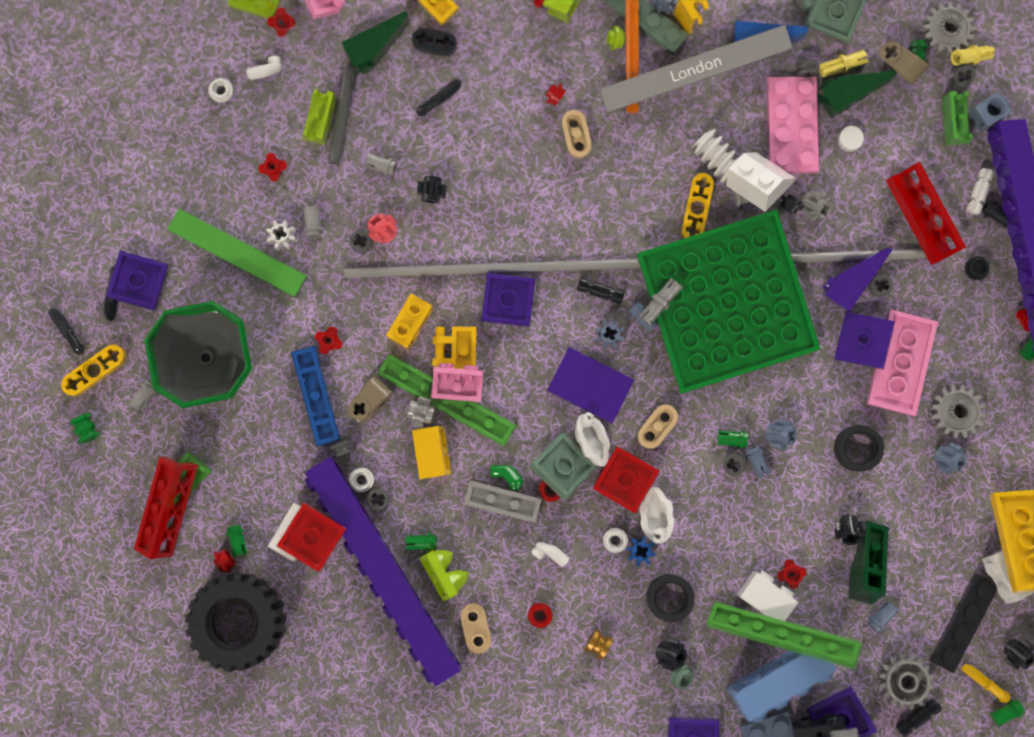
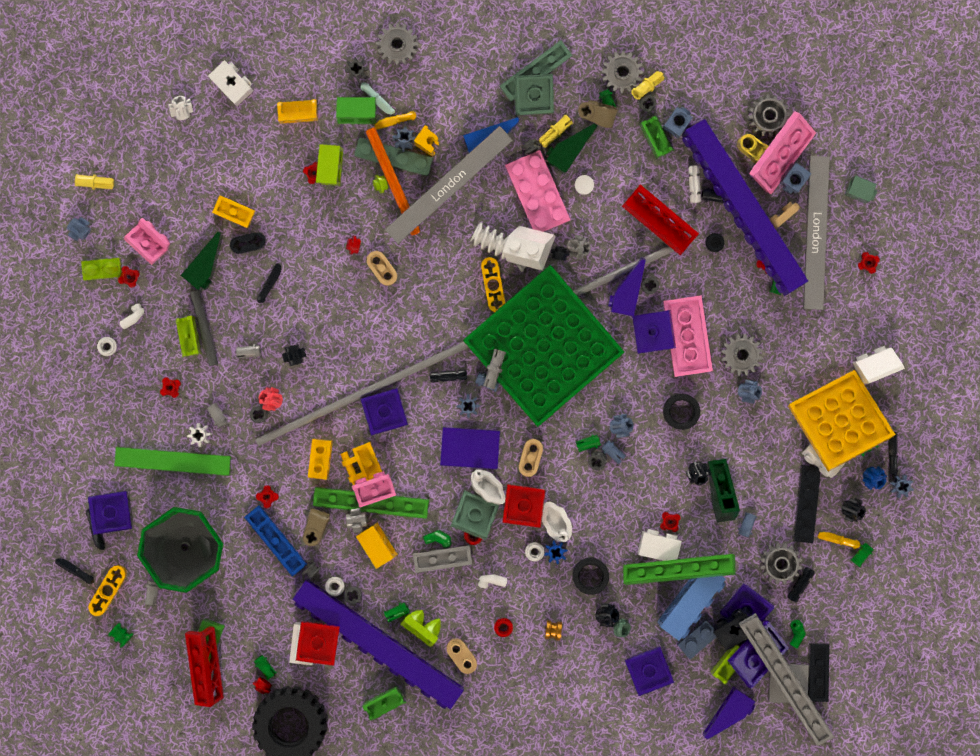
camera: 20 degrees left, 5 degrees up
(358, 644) = (383, 703): none -> bright green hinge

